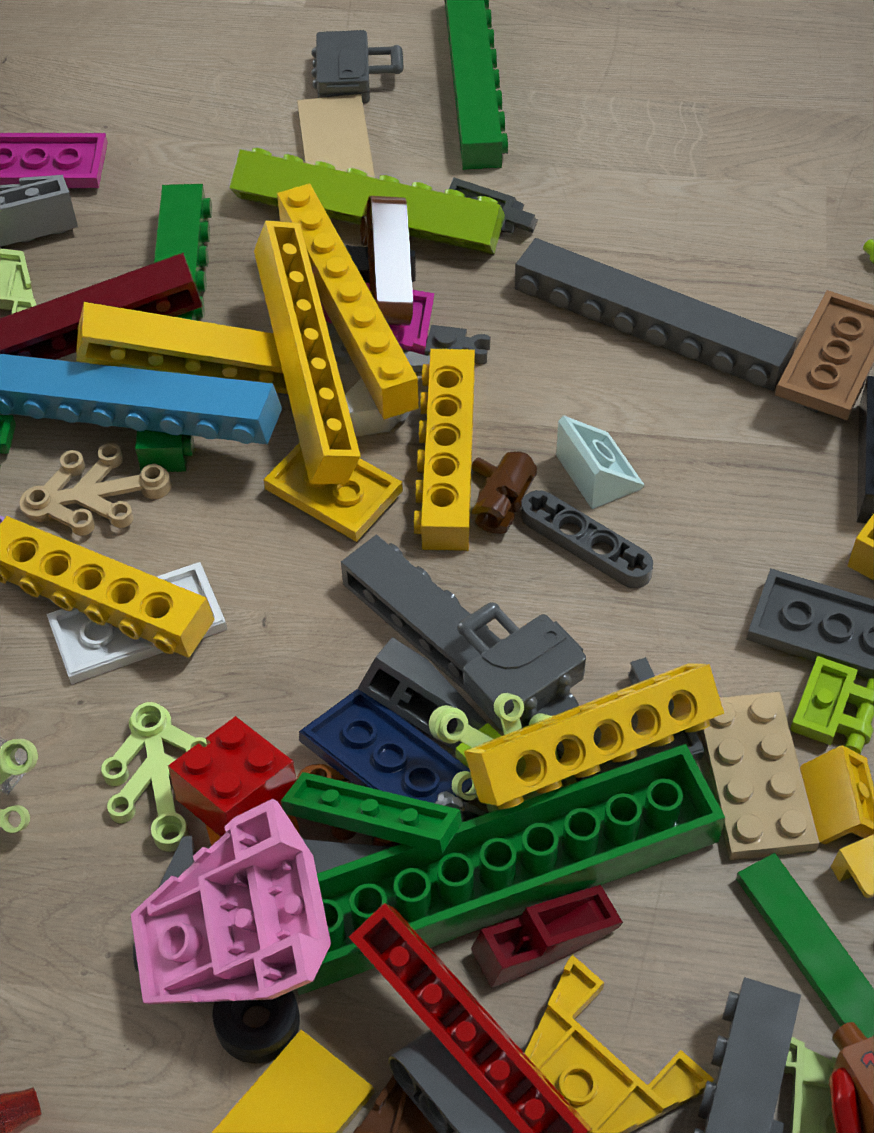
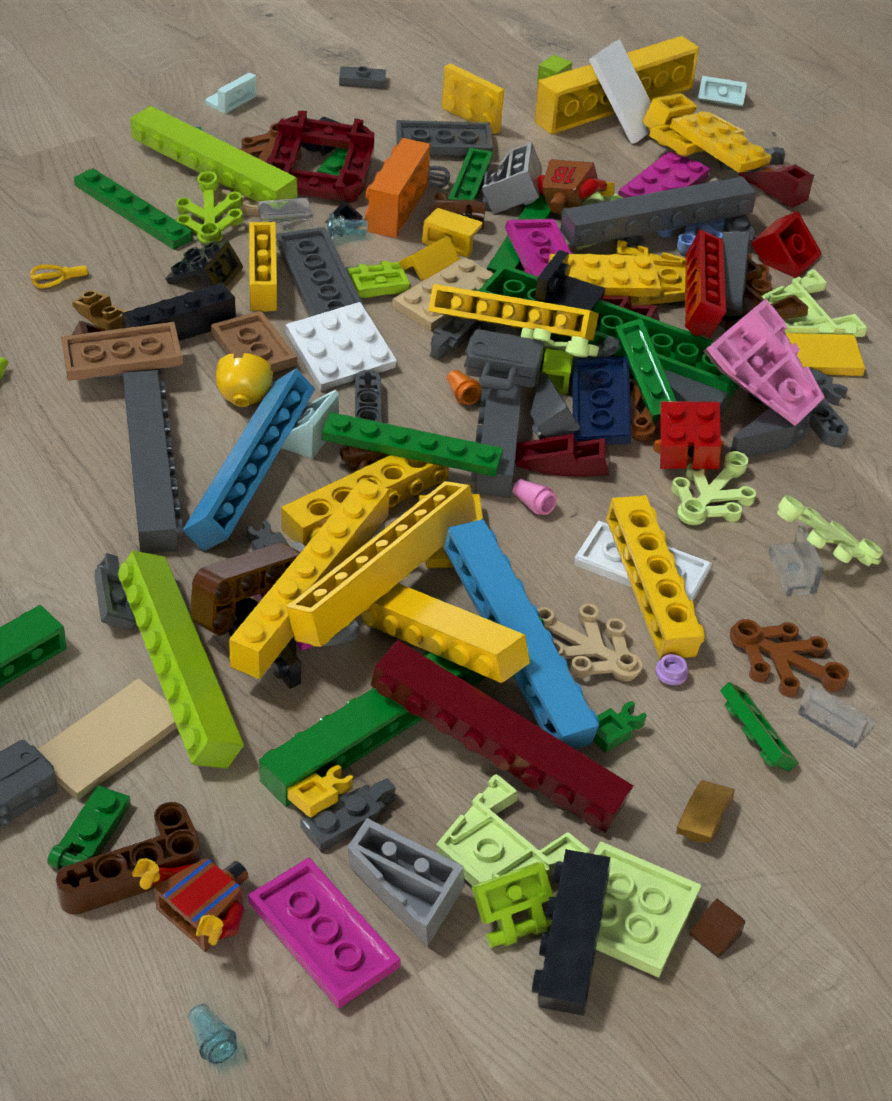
camera: 135 degrees left, 10 degrees down
(31, 73) = (213, 1036): none -> clear light blue cone
(114, 231) = (348, 814): none -> dark grey hinge
(116, 1026) = (831, 429): none -> dark grey beam
(129, 110) = (197, 897): none -> torso
(142, 212) = (319, 793): none -> yellow plate
(189, 110) = (87, 882): none -> reddish brown beam
(209, 1087) = (831, 392): none -> dark grey plate
(259, 97) = (91, 828): none -> green plate
(312, 587) = (535, 496): none -> bright pink cone
(339, 661) = (564, 456): none -> dark red slope
(459, 496) = (412, 444): none -> green plate
(581, 382) = (249, 461): none -> dark azure brick
(583, 821) = (559, 288): none -> black bracket
(626, 966) = (617, 273): none -> yellow plate
(711, 436) = (243, 379): none -> yellow cylinder
(715, 571) = (340, 345): none -> white plate
(738, 934) = (535, 242): none -> dark pink plate
(785, 497) = (254, 336): none -> medium nougat plate

